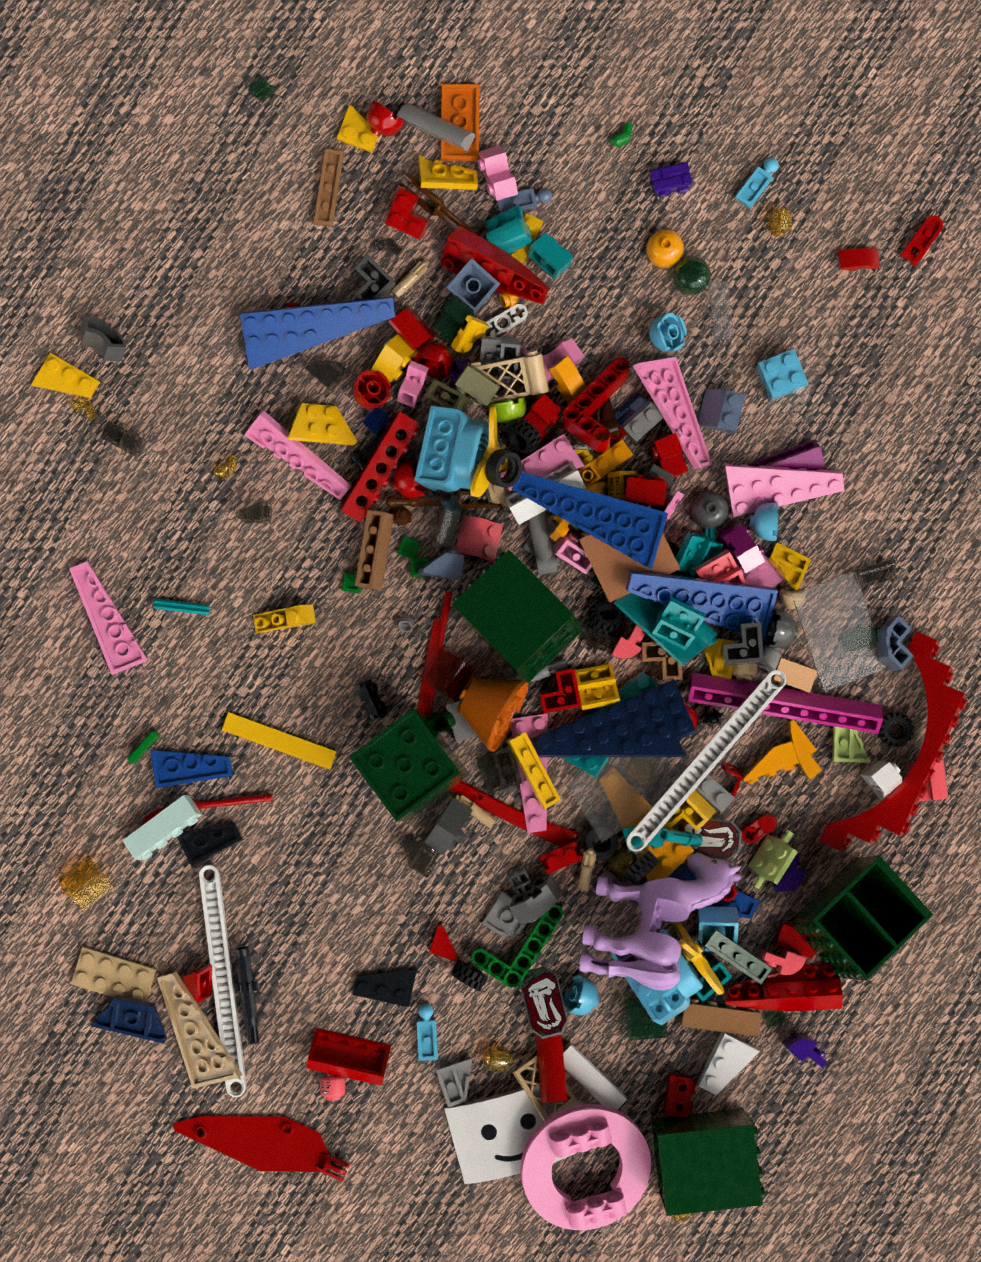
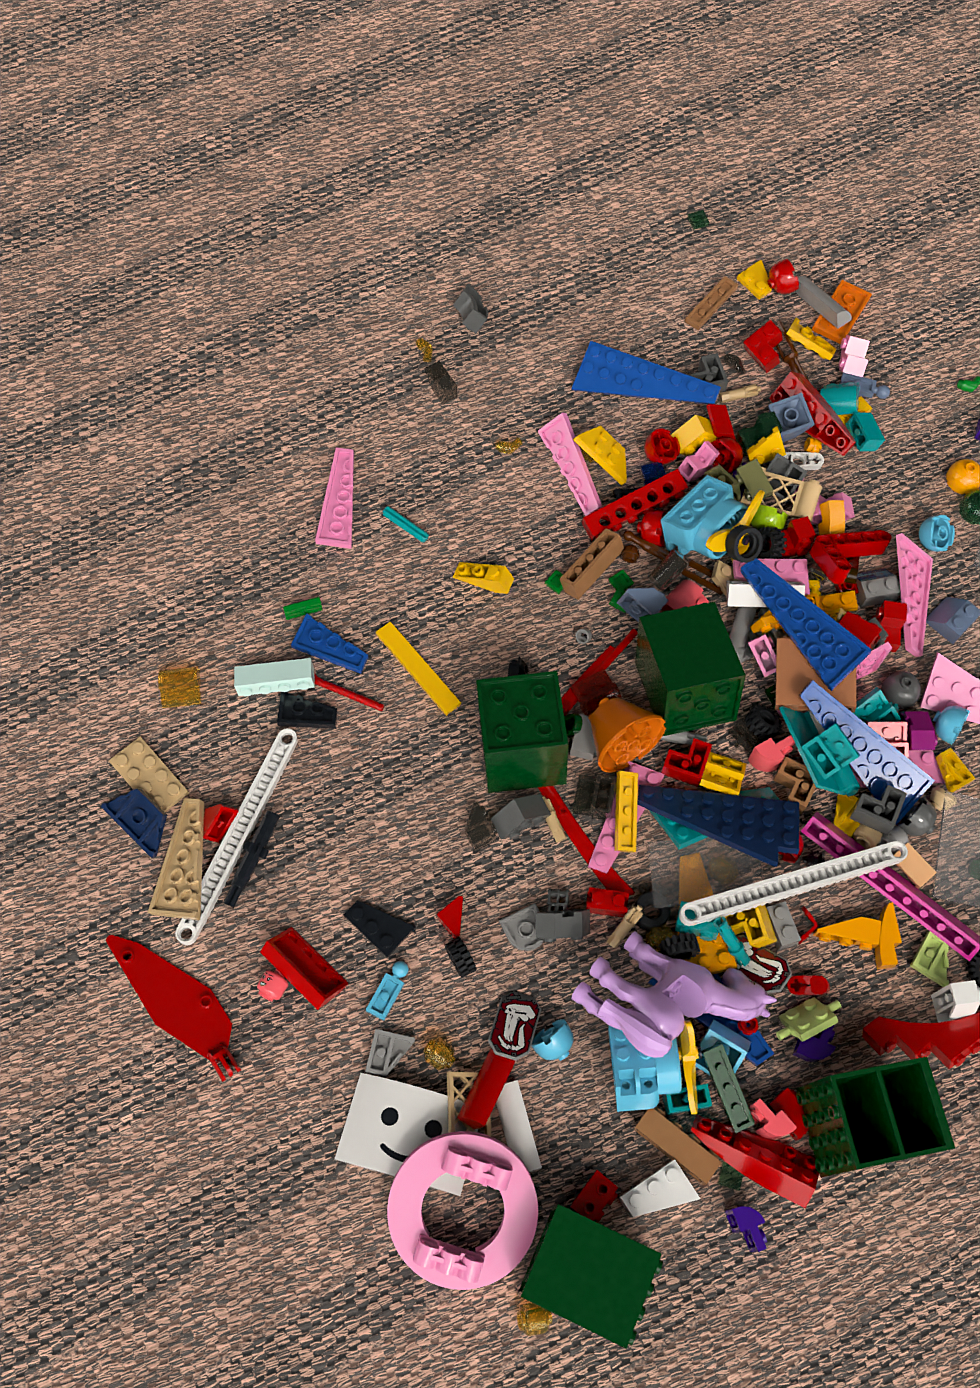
camera: 30 degrees right, 20 degrees down
(65, 378) = (424, 322): yellow wing -> none
(257, 513) = (518, 479): clear smoke tile -> none
(326, 373) = (631, 420): clear smoke slope -> none
(524, 951) = (523, 968): green beam -> none
(638, 1024) = (593, 1101): clear green brick -> none

